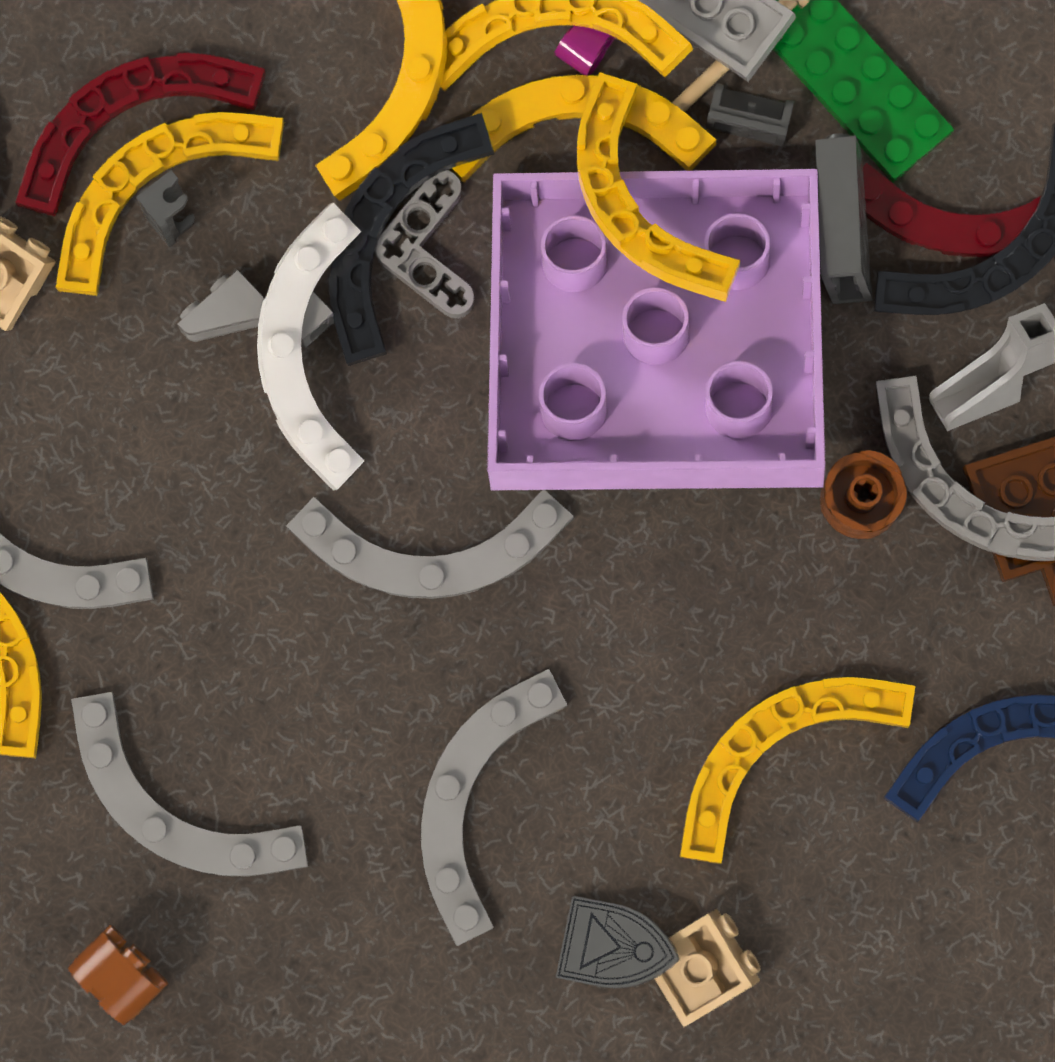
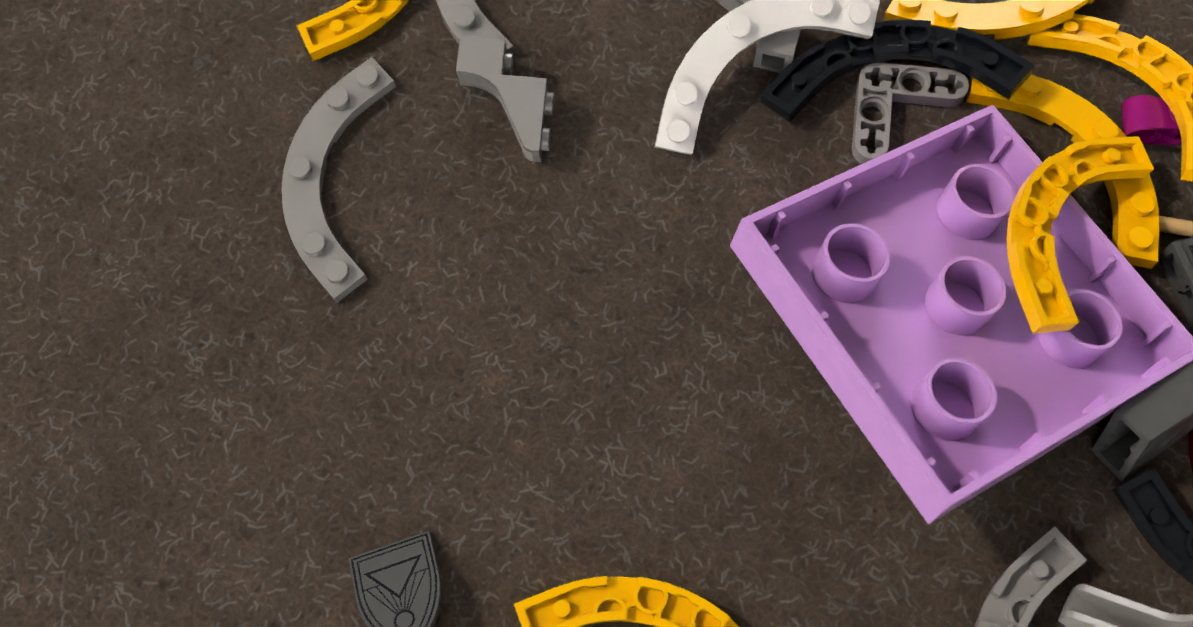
camera: 65 degrees right, 10 degrees down
(117, 975) = (159, 201): dark orange brick -> none
(219, 584) = (525, 100): none -> light grey arch
(430, 575) = (639, 266): light grey plate -> none
(450, 792) = (459, 376): light grey plate -> none
(886, 494) = (956, 553): dark orange brick -> none

